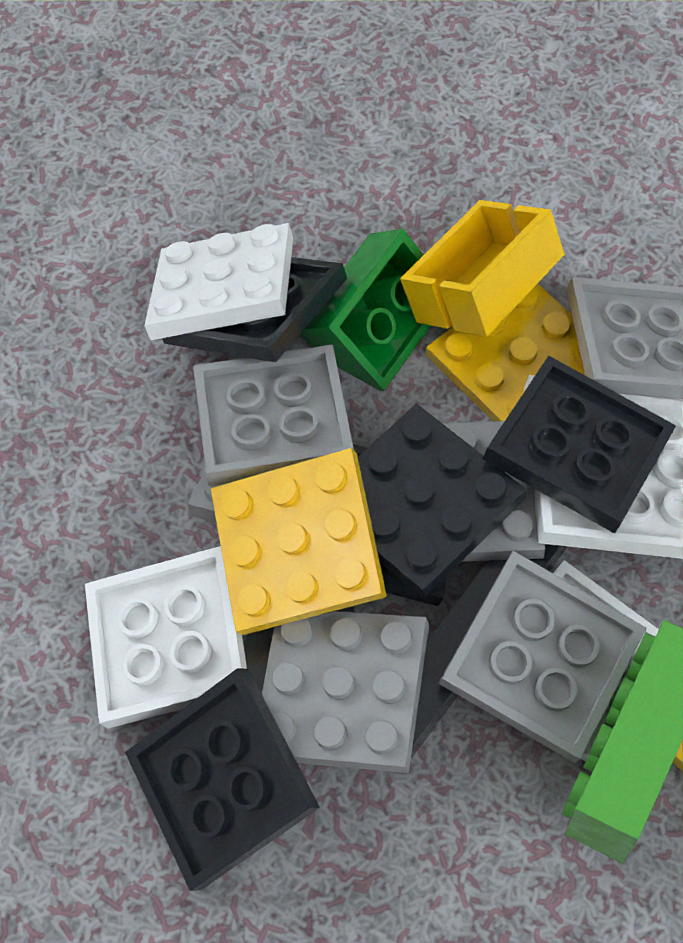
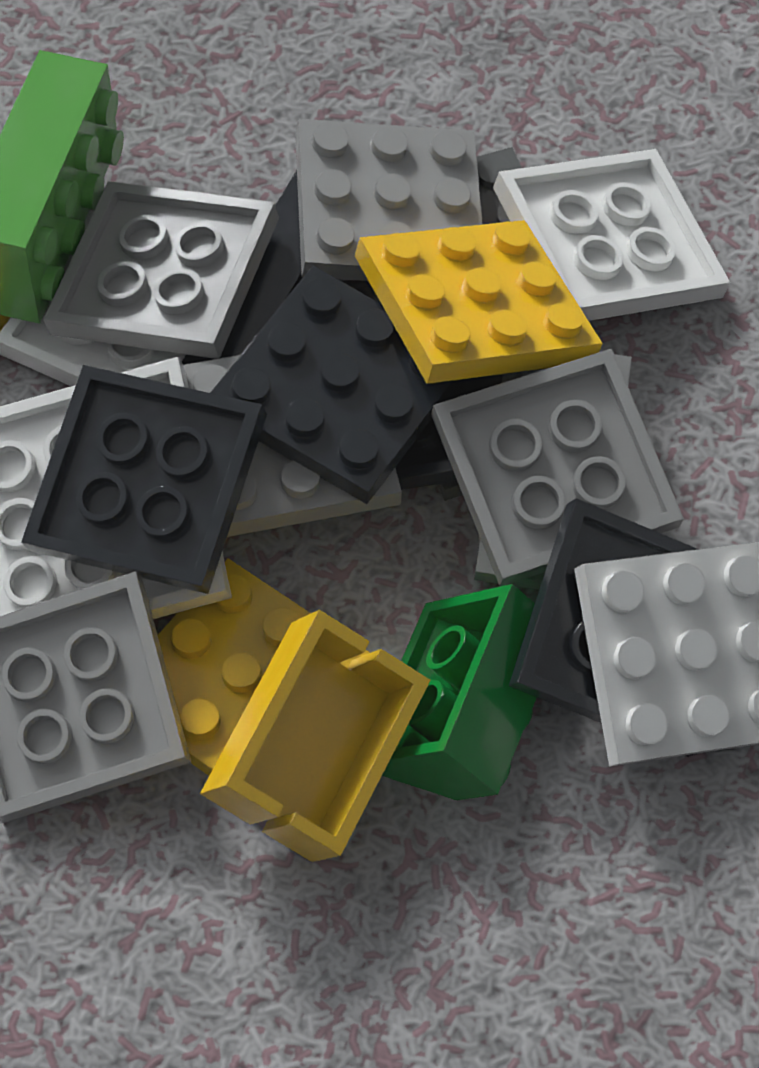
camera: 170 degrees right, 5 degrees down
(221, 779) = (499, 102): black plate -> none

